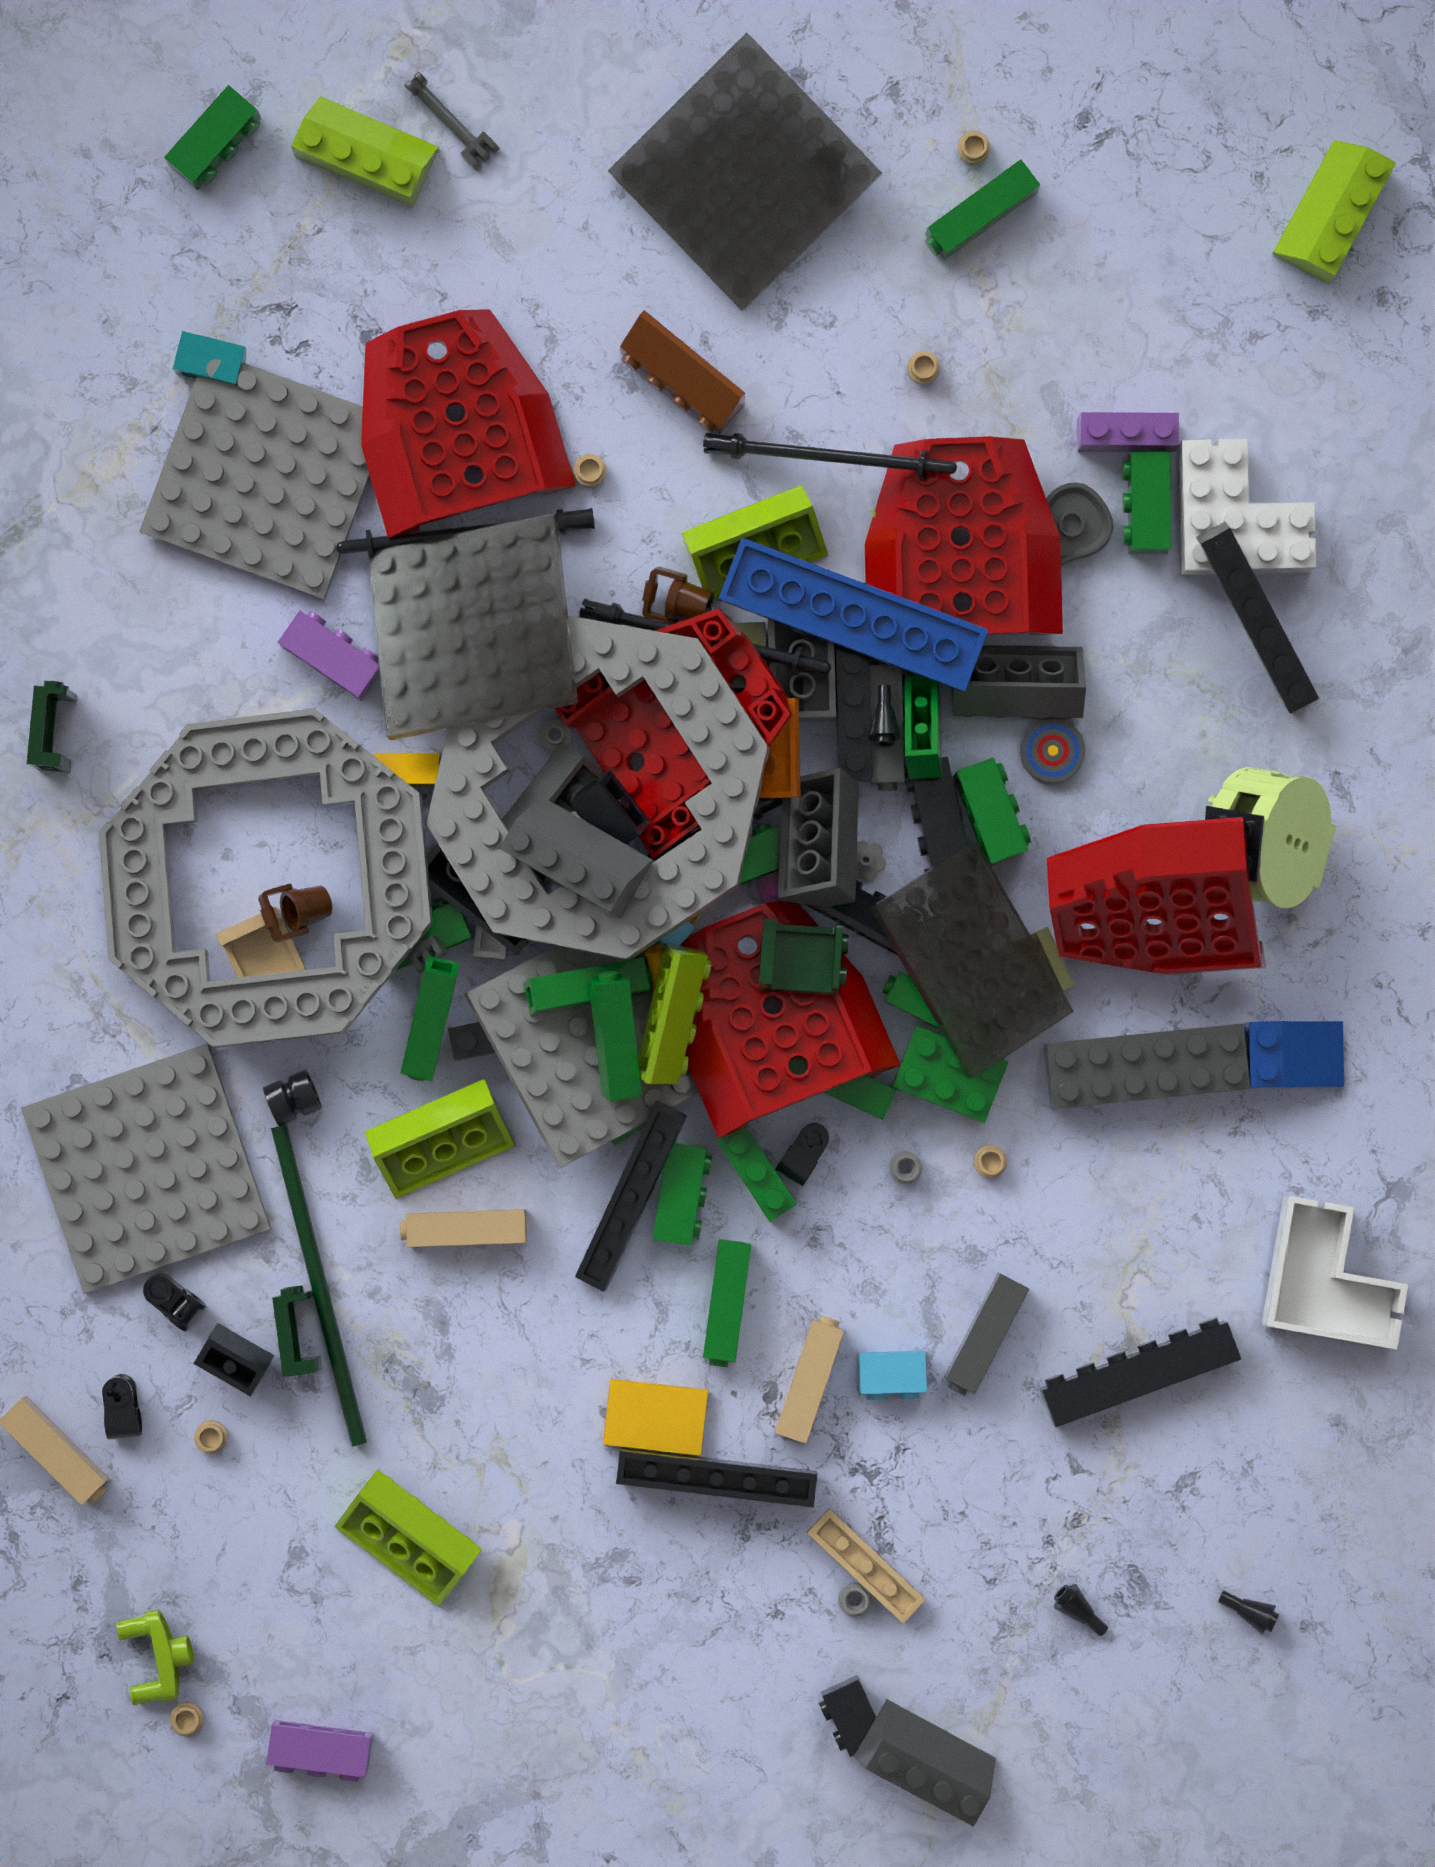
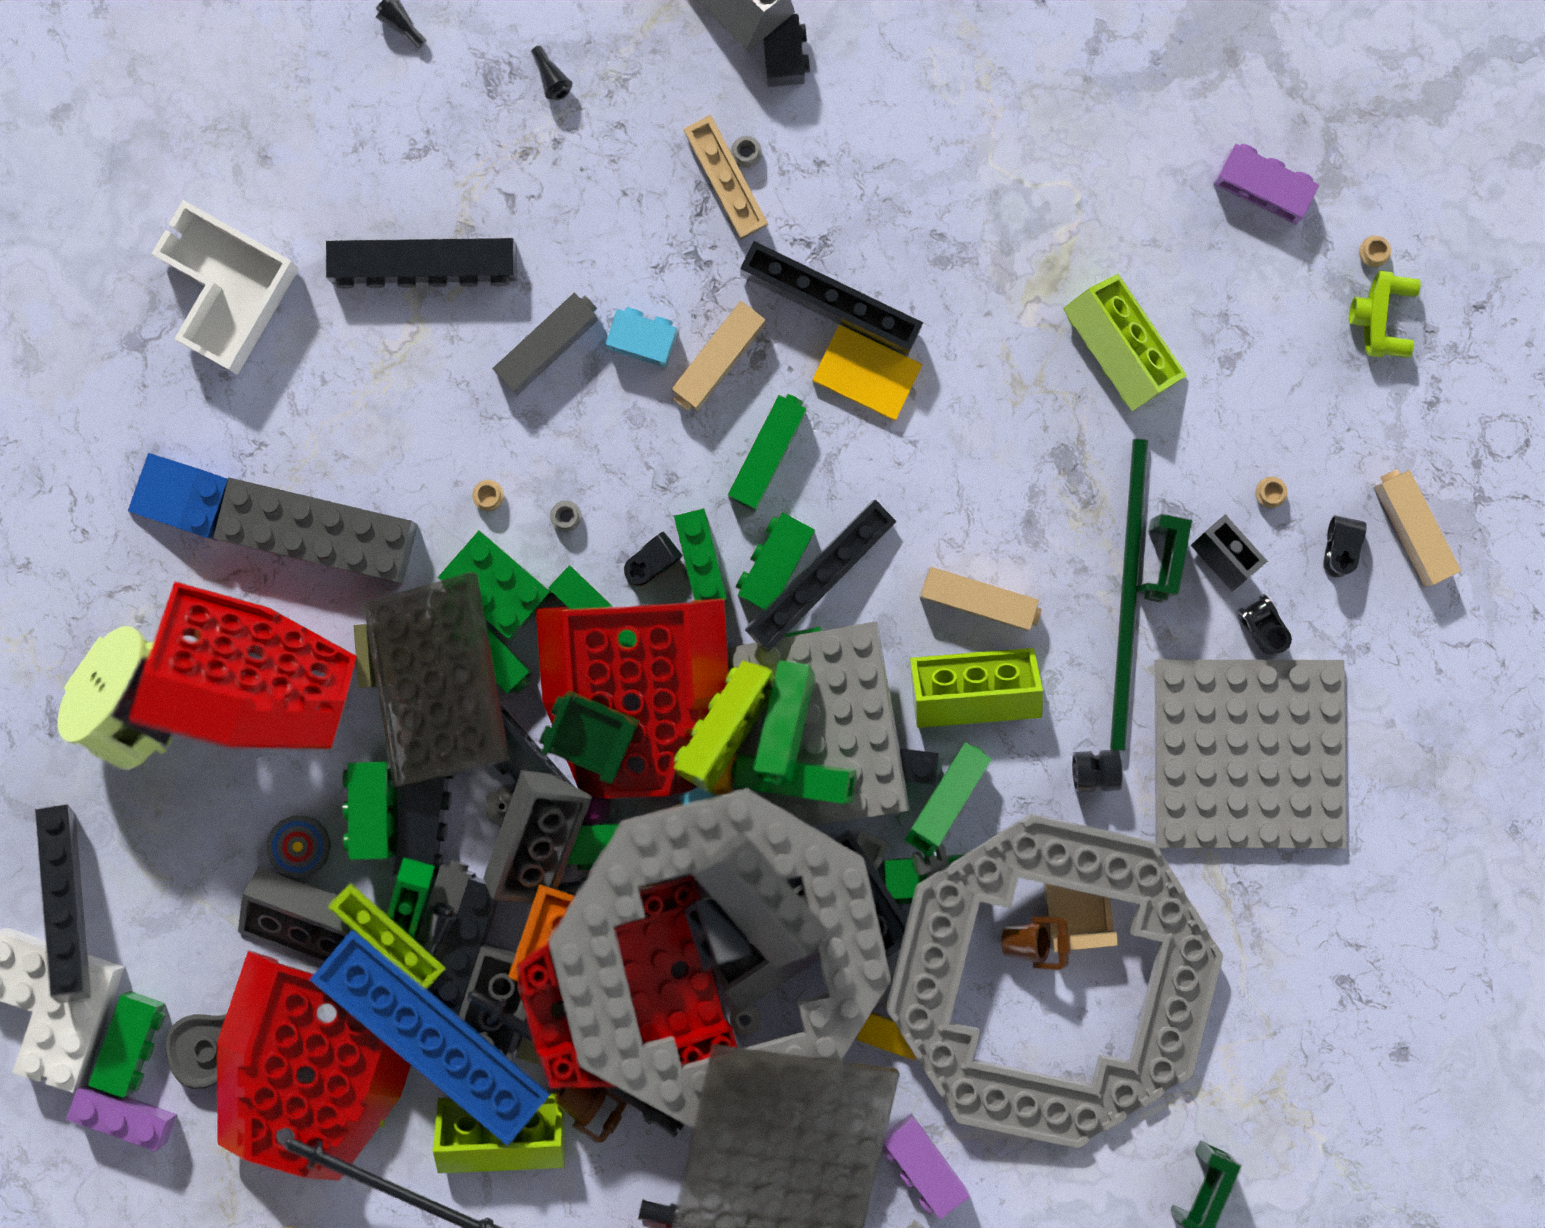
camera: 155 degrees left, 0 degrees up
(931, 696) = (385, 935): none -> lime slope

